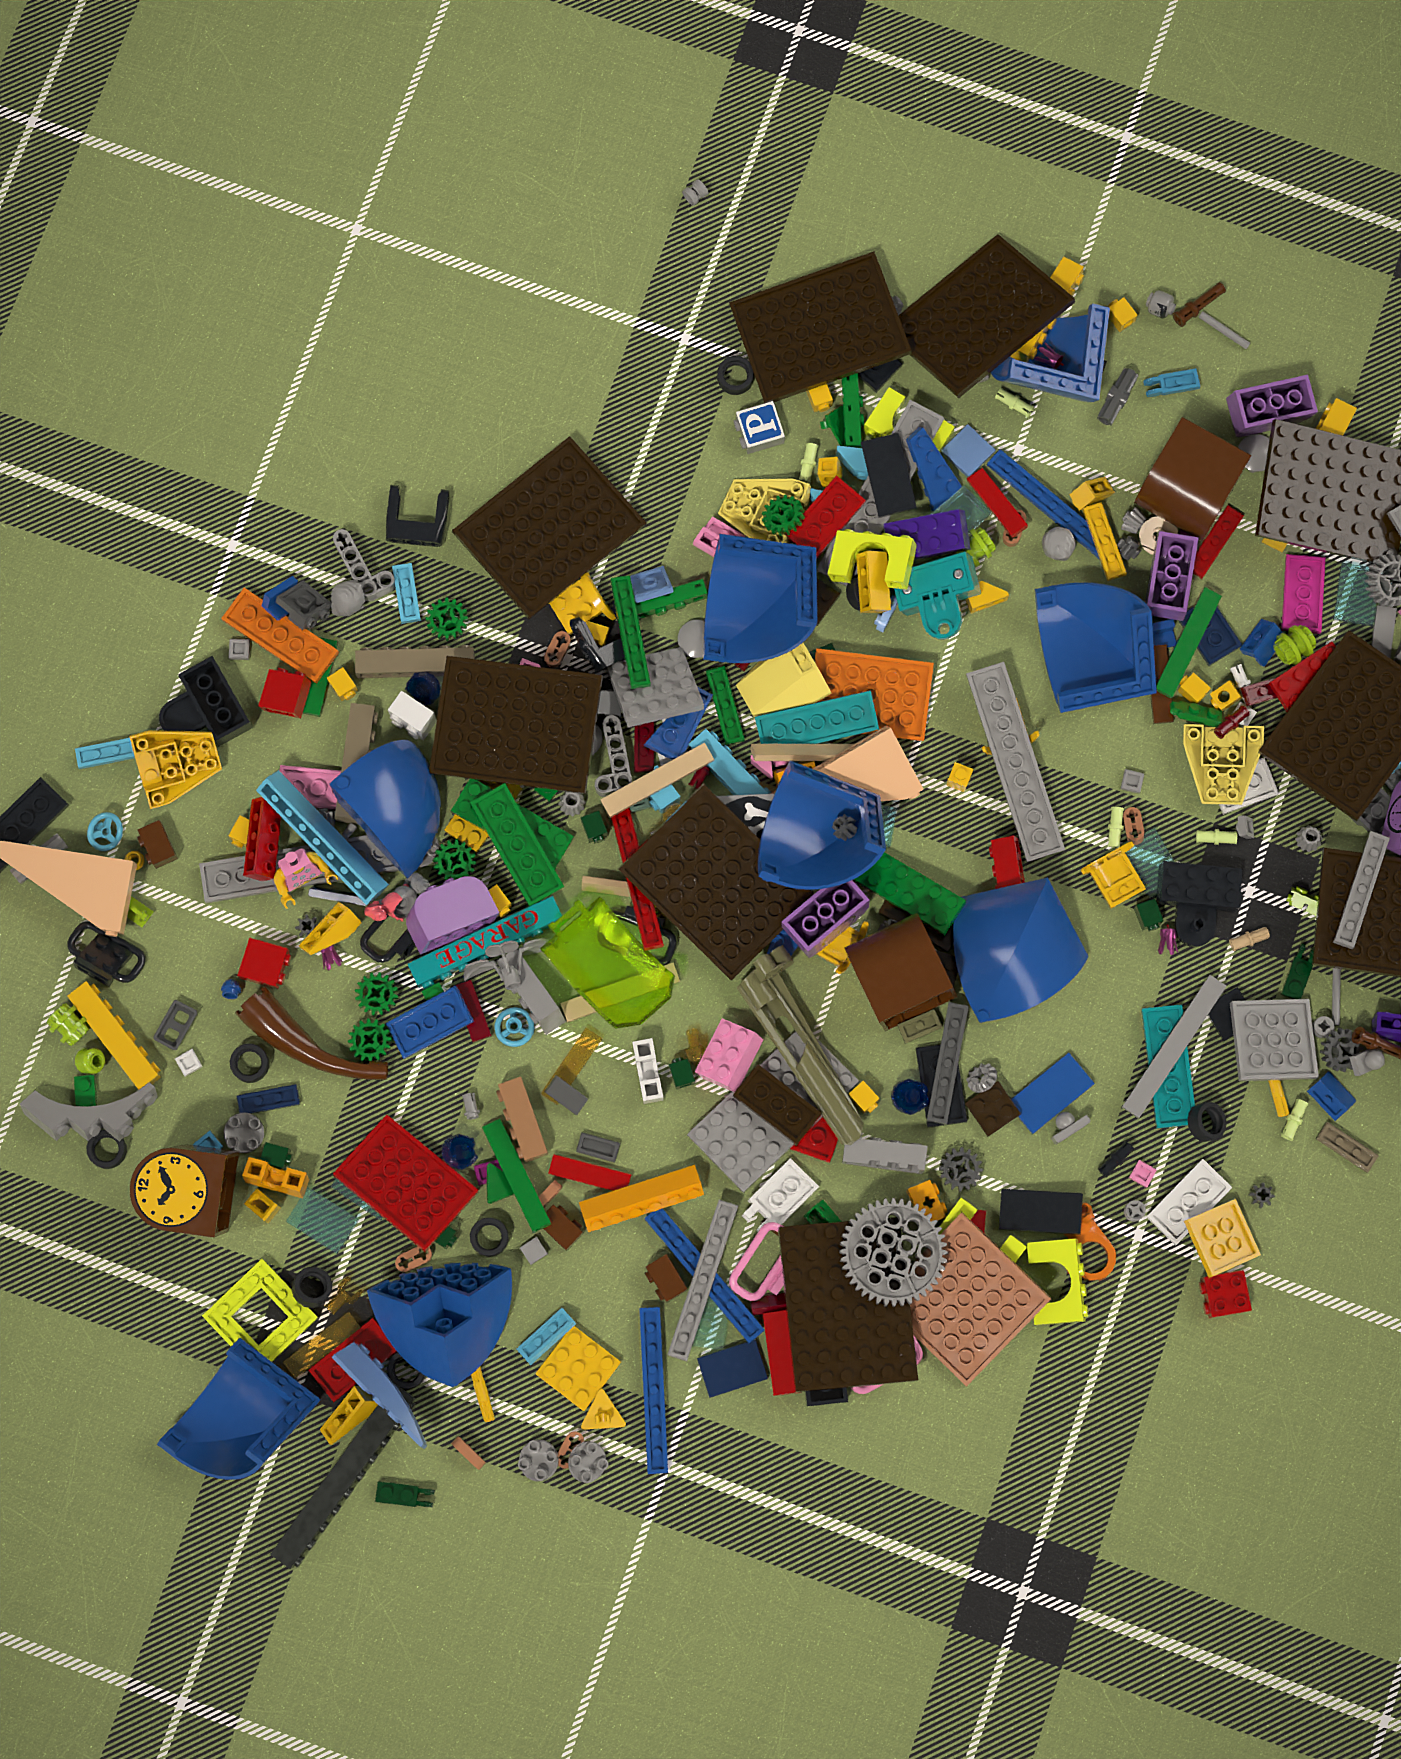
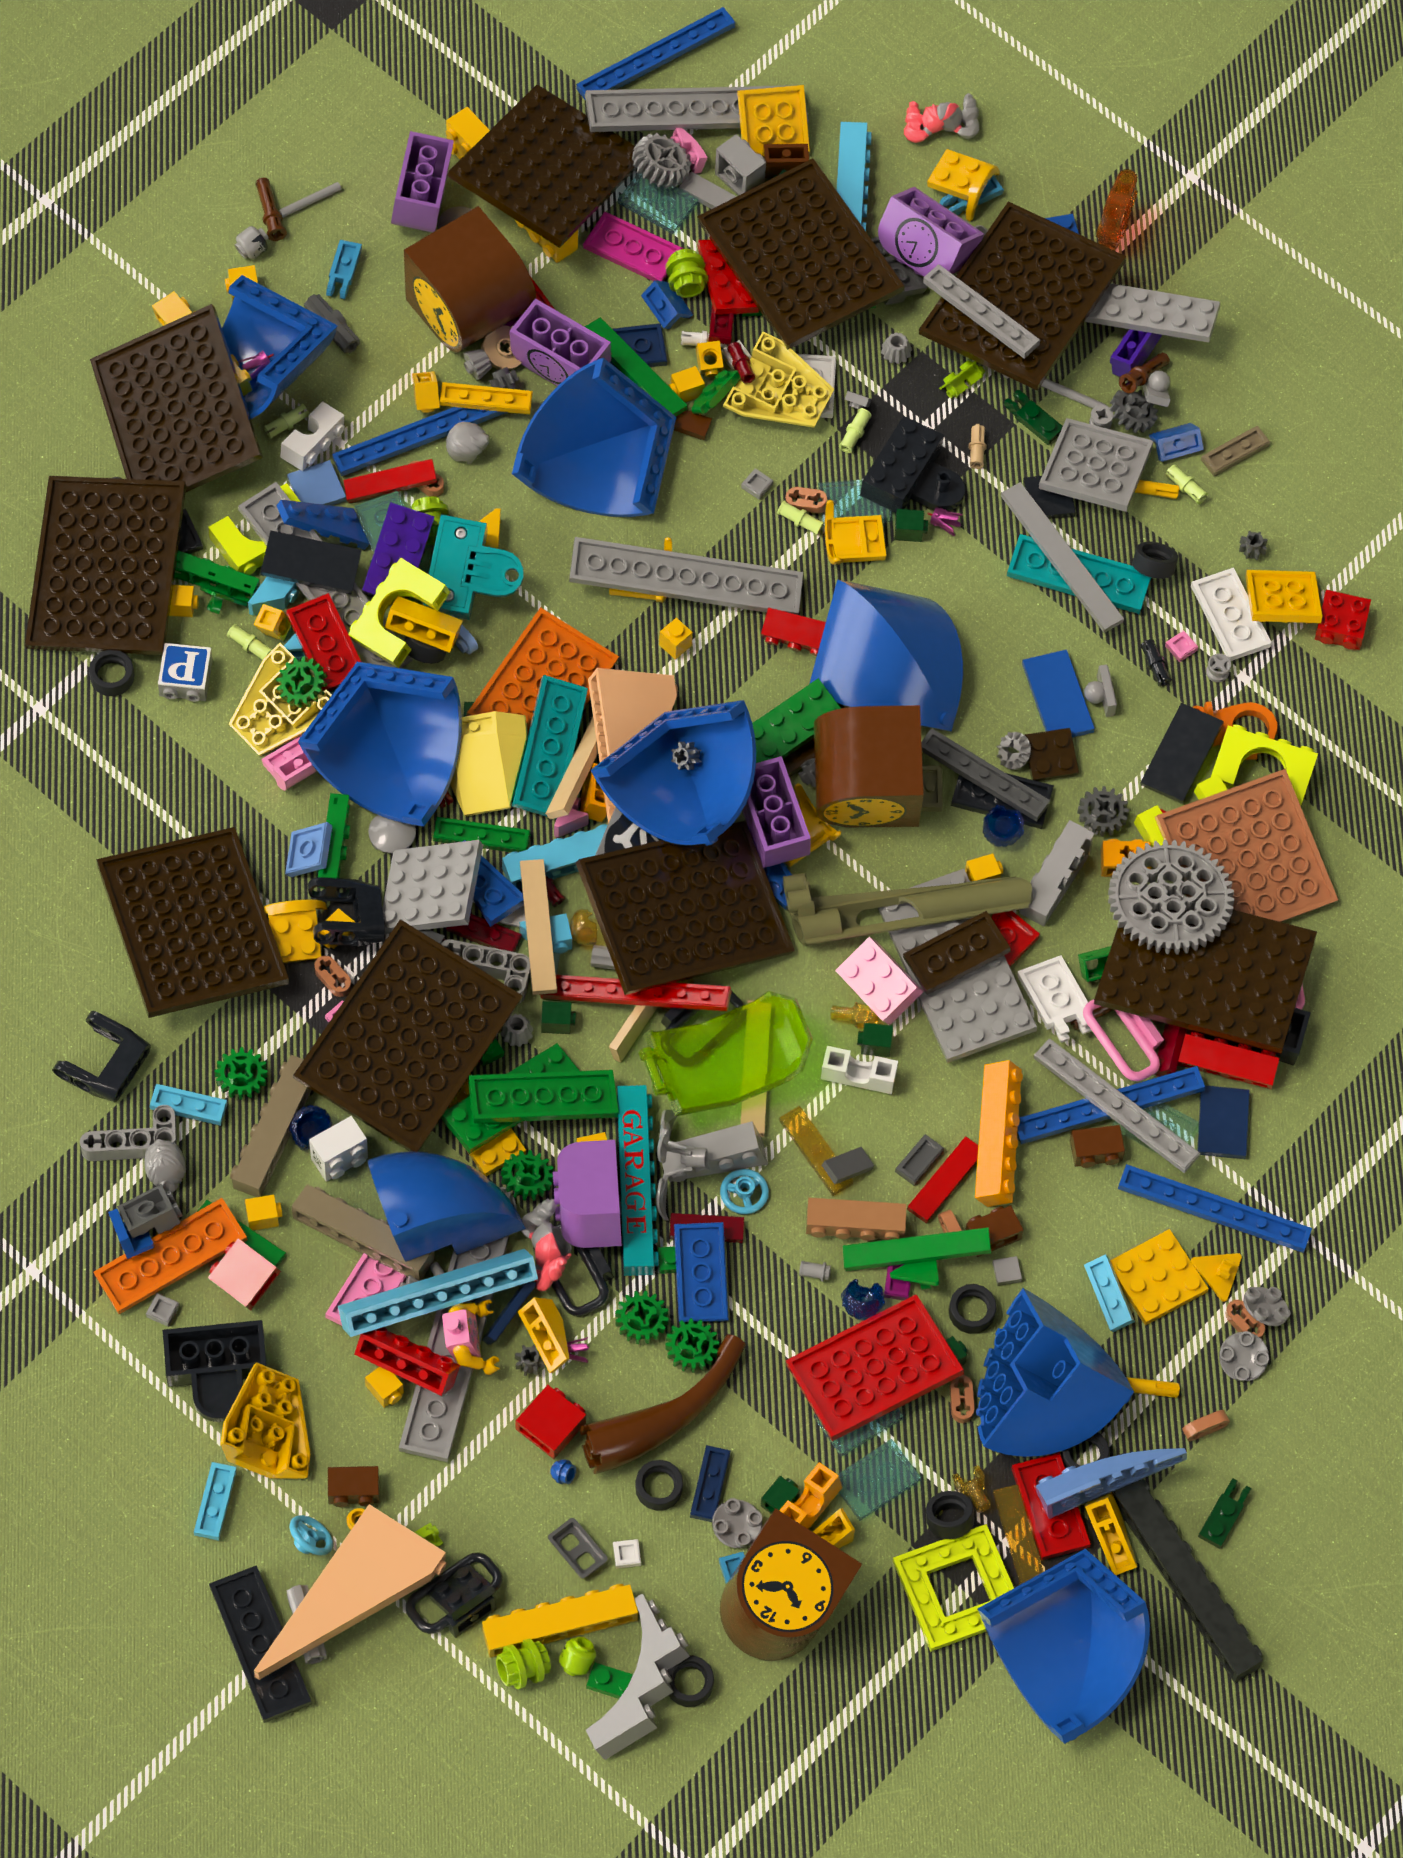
camera: 70 degrees left, 15 degrees down
(630, 632) = (358, 882): green tile -> none
(991, 426) = (303, 449): none -> white arch

